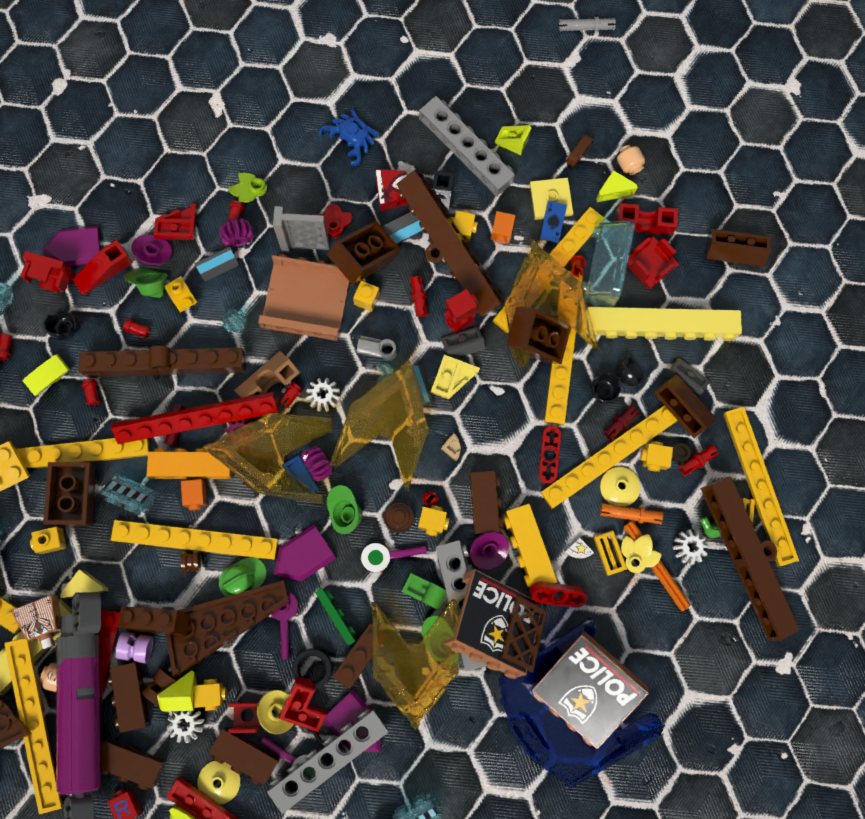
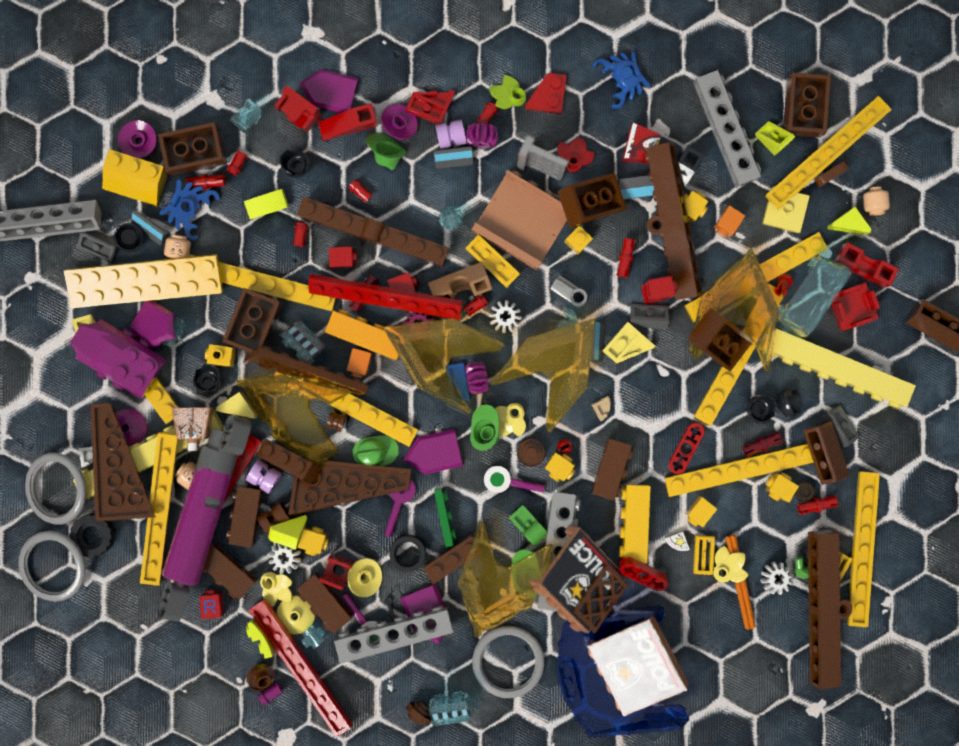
camera: 30 degrees right, 10 degrees up
(42, 569) = (207, 379): none -> black hair
(132, 566) = (285, 407): none -> clear yellow windscreen
(135, 521) = (285, 365): none -> reddish brown wing
(140, 398) = (342, 257): none -> red brick
(180, 294) = (411, 174): yellow brick -> none
(190, 761) = (277, 589): none -> light yellow plate
(206, 243) = (450, 134): none -> lavender wheel
(208, 397) = (403, 282): none -> red brick
(244, 797) = (313, 636): none -> clear light blue gear
(287, 176) = (548, 95): none -> red wing
(291, 347) = (492, 261): none -> yellow plate
(297, 707) = (384, 580): red brick -> none
(367, 496) = (511, 423): none -> light yellow plate
(490, 557) = (598, 512): magenta dish -> none
(492, 748) = (477, 662): none -> light grey wedge
(530, 97) = (807, 104): none -> reddish brown brick
(553, 222) = (777, 234): blue tile -> none
(567, 134) = (828, 152): none -> yellow plate
(587, 24) = (899, 51): light grey pin -> none
(589, 511) = (700, 512): none -> yellow brick
(611, 491) = (728, 496): light yellow dish -> none
(640, 515) = (743, 532): orange pin -> none

